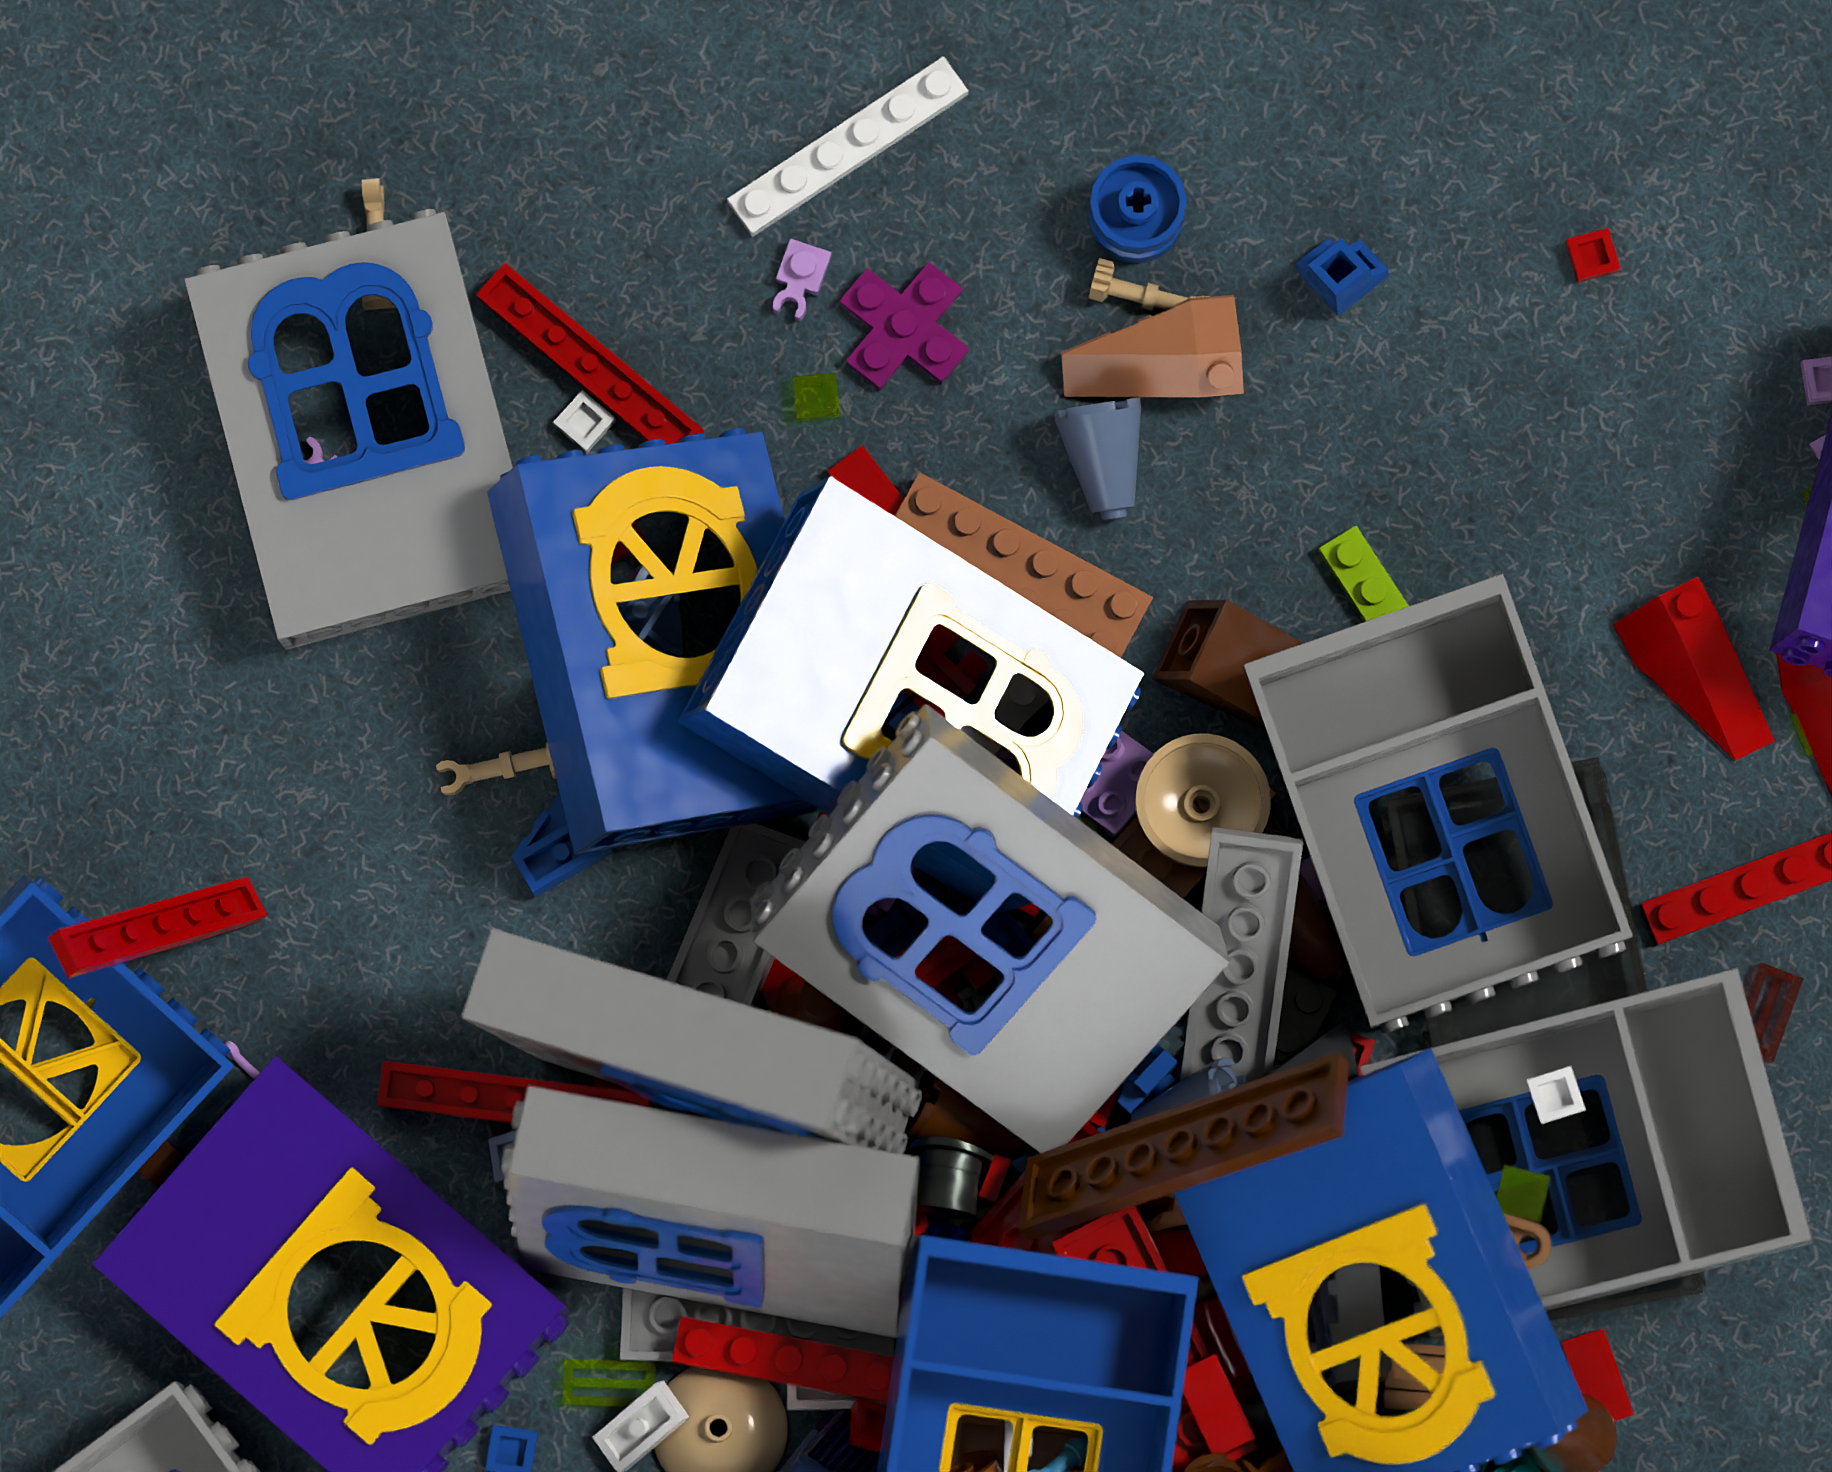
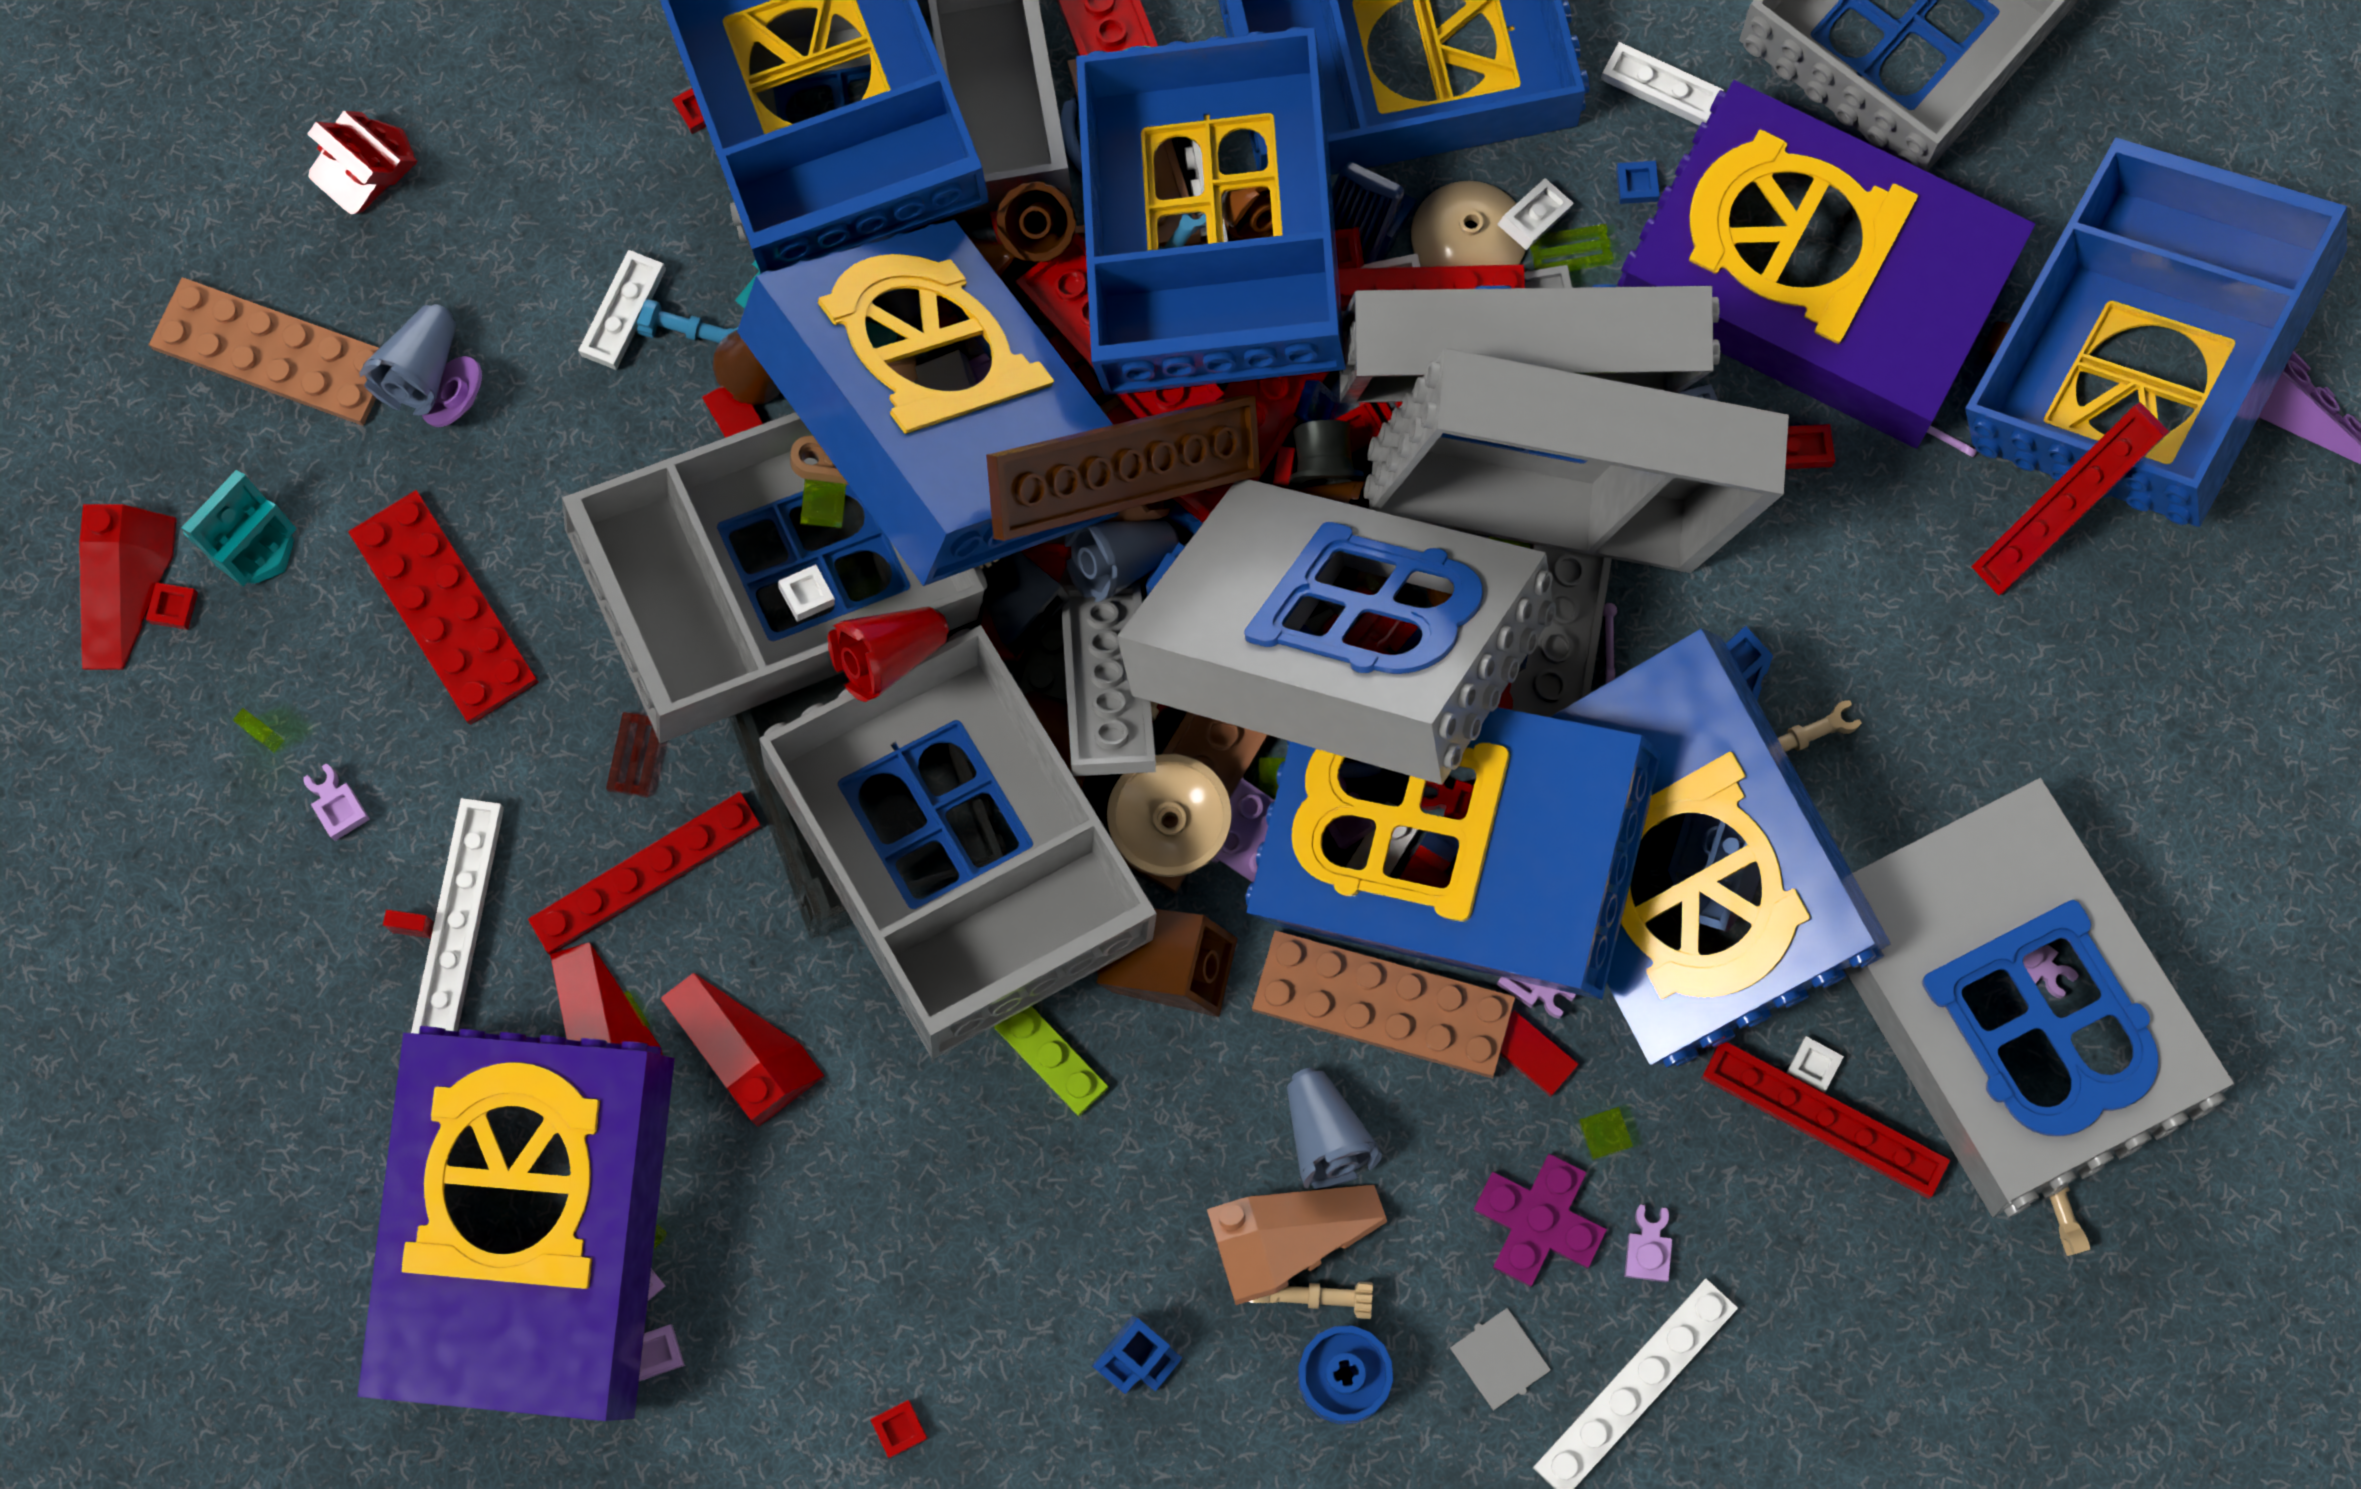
camera: 175 degrees right, 5 degrees down
(671, 949) = (1609, 612): none -> lavender hinge
(975, 202) = (1500, 1359): none -> light grey piece
(1215, 1406) = (1057, 299): red tile -> none
(1479, 1004) = (884, 648): none -> red cone

